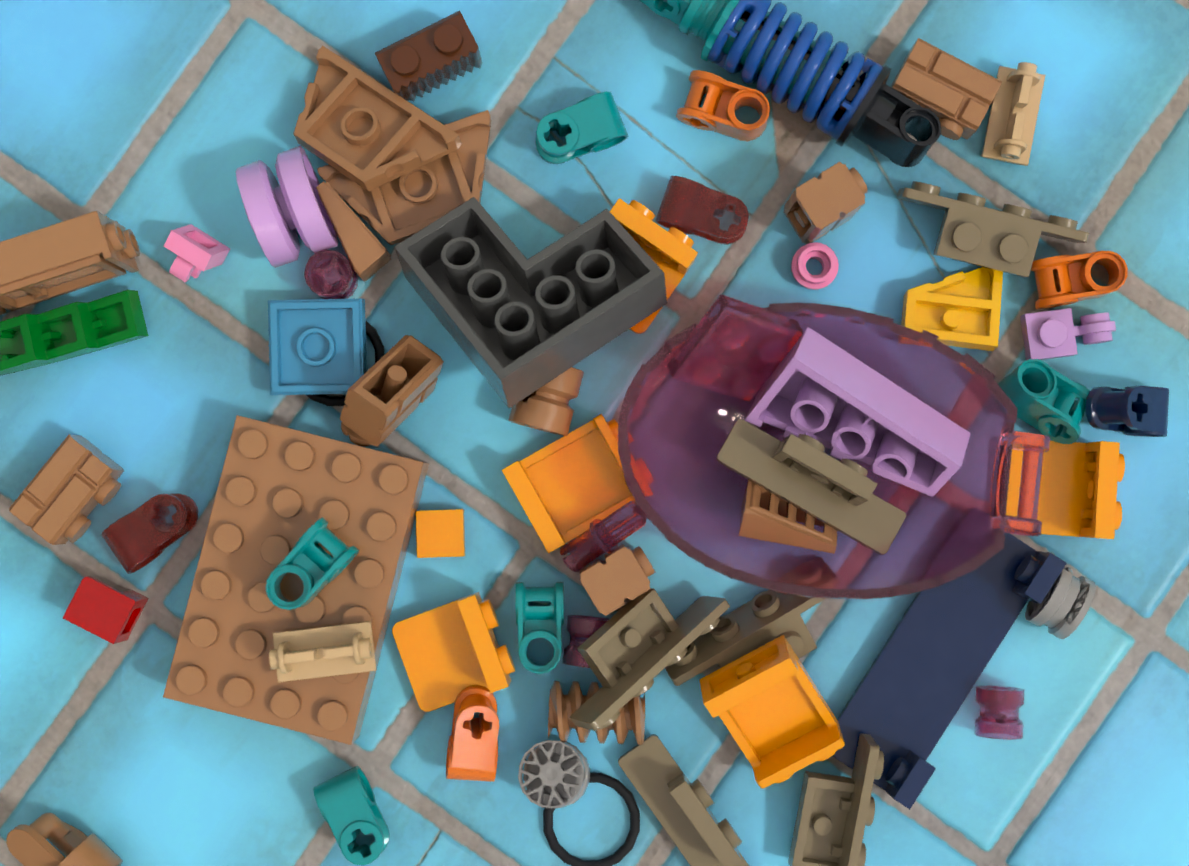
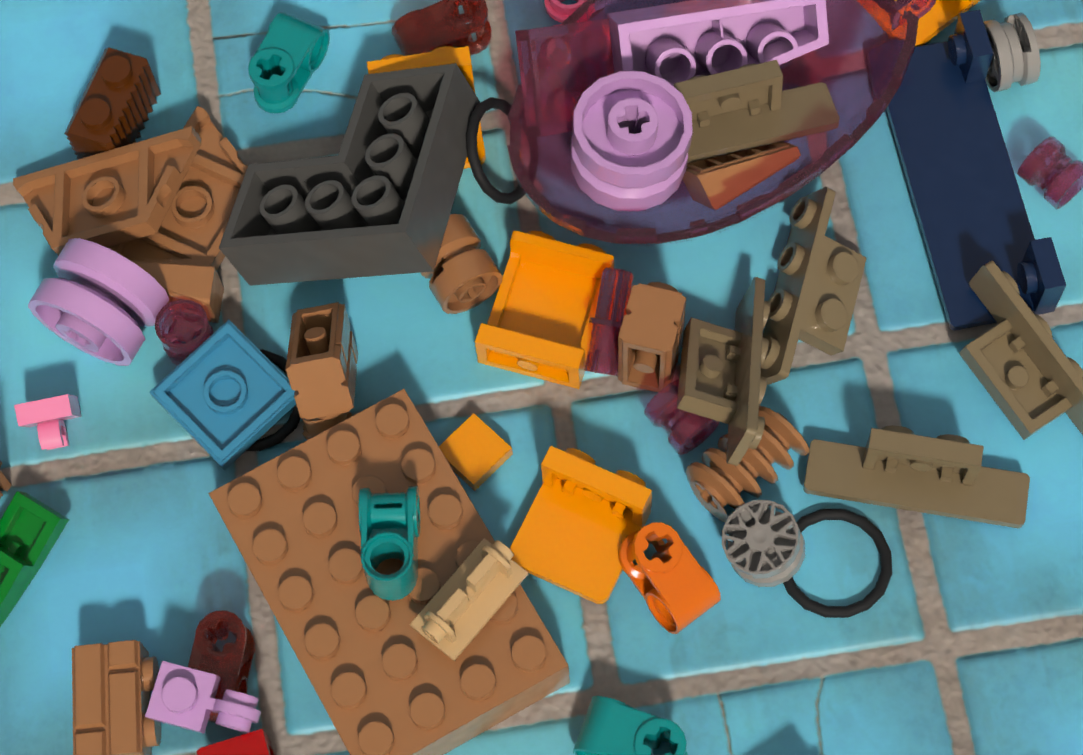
camera: 35 degrees left, 20 degrees down
(106, 539) = (187, 698): none -> lavender plate
(539, 622) = (624, 434): teal piece -> none
(632, 327) = (472, 151): none -> black piece
(750, 443) = (630, 140): none -> lavender wheel
(773, 711) = (883, 324): light orange panel -> none

